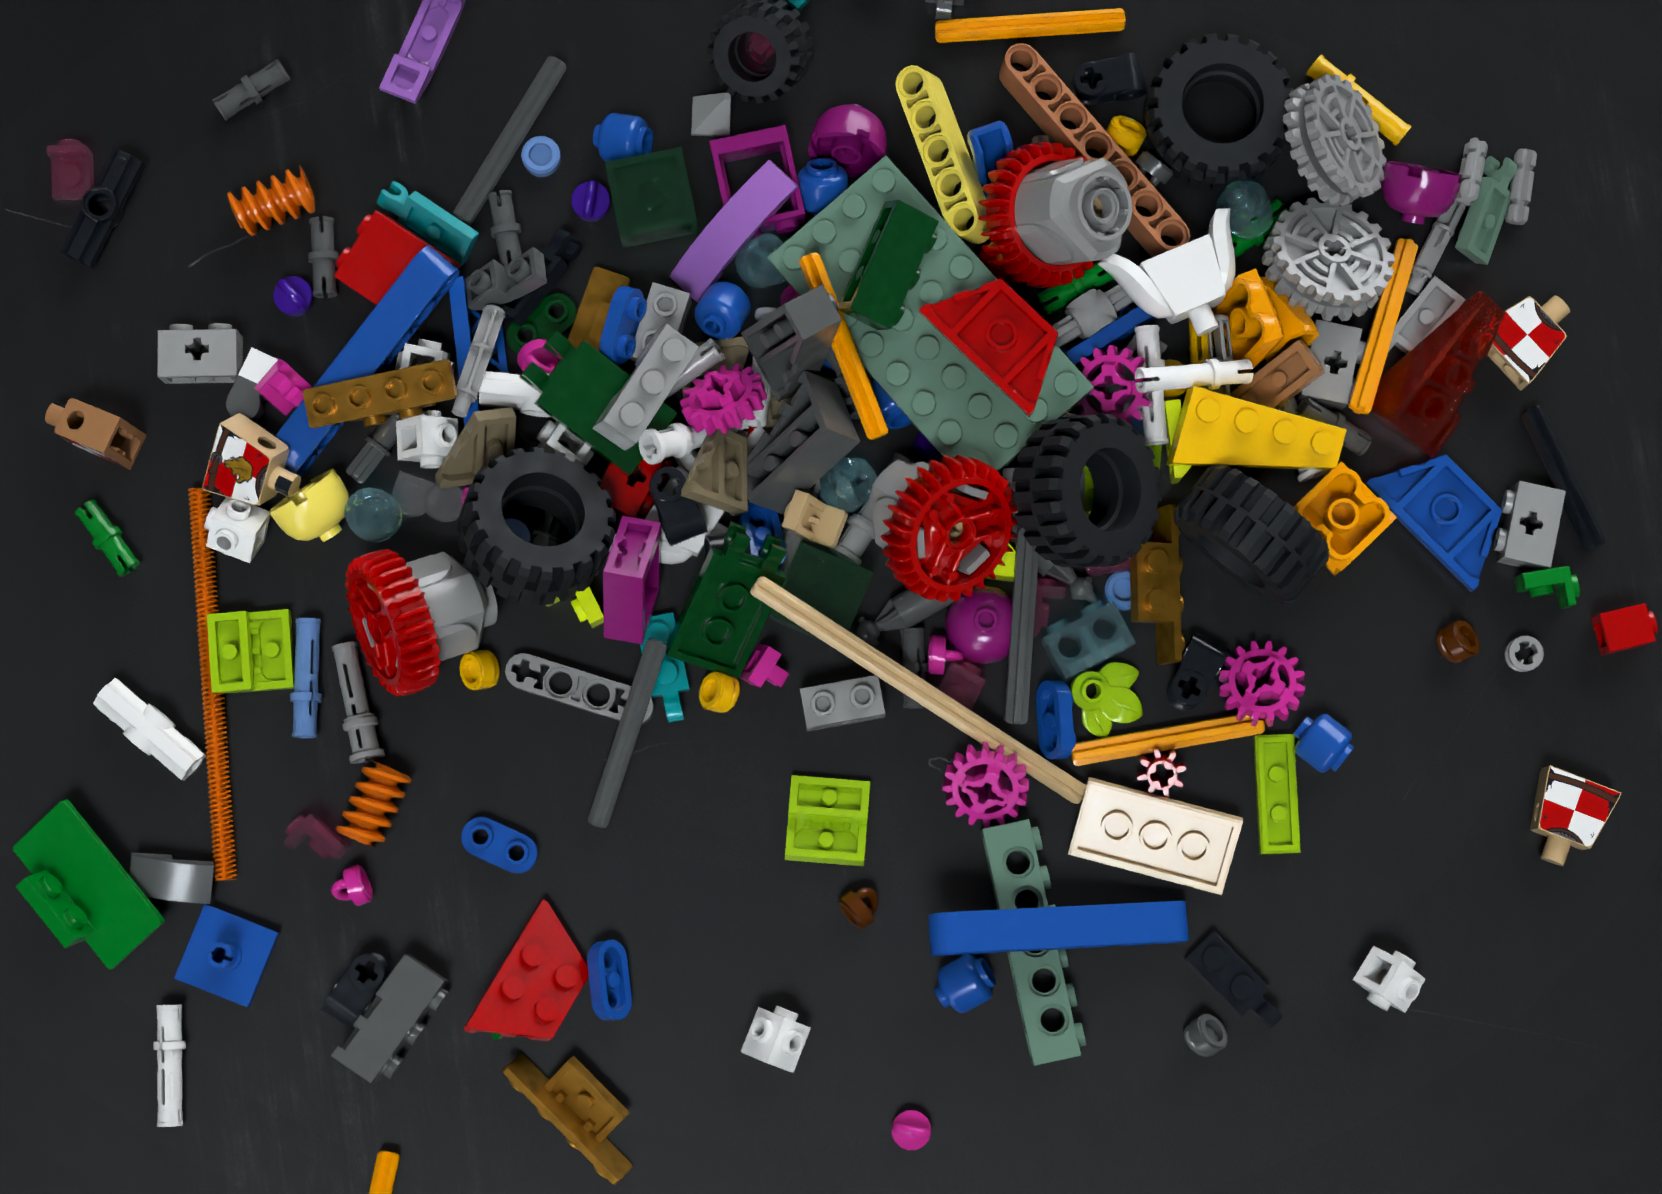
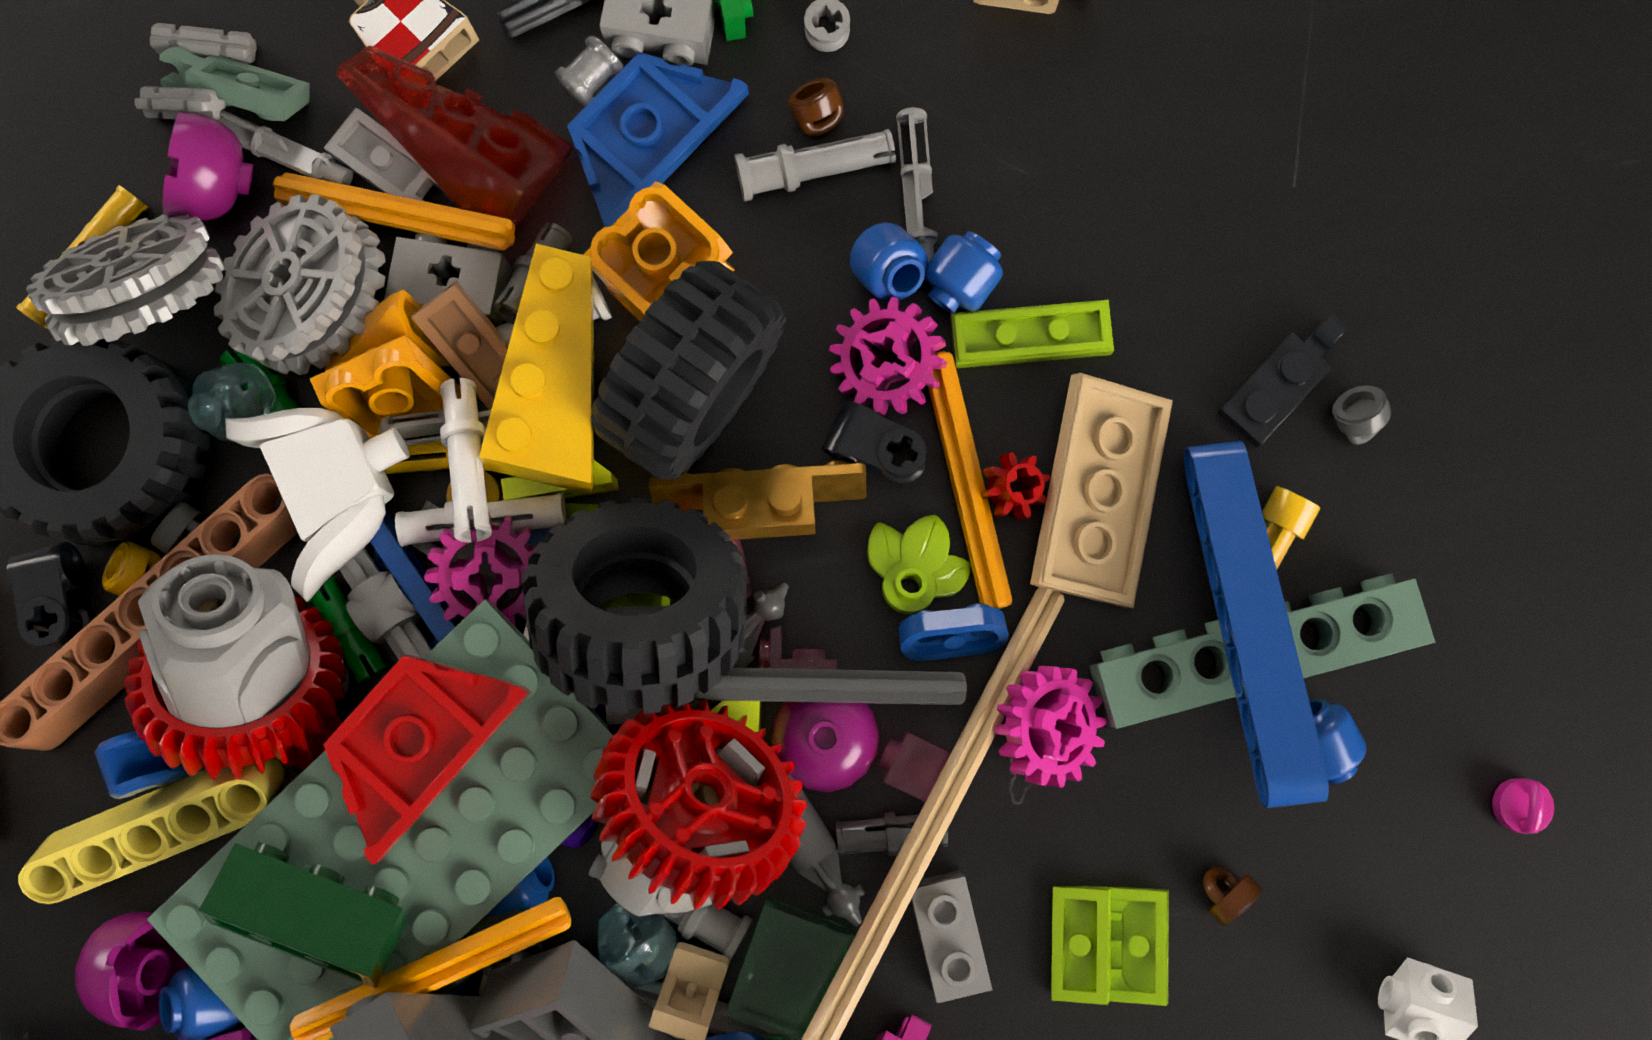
camera: 90 degrees left, 0 degrees up
(938, 654) = (871, 800): dark pink tile -> none
(1091, 648) = (854, 586): clear light blue brick -> none
(1118, 590) = (768, 554): medium blue tile -> none
(1129, 971) = (1286, 518): none -> yellow piece
(1333, 687) = (888, 261): none -> blue head
(1389, 979) = (1273, 175): white brick -> none
(1393, 714) = (916, 181): none -> light grey piece
(1410, 619) = (790, 167): none -> light grey pin
(1489, 472) = (589, 70): none -> clear bush

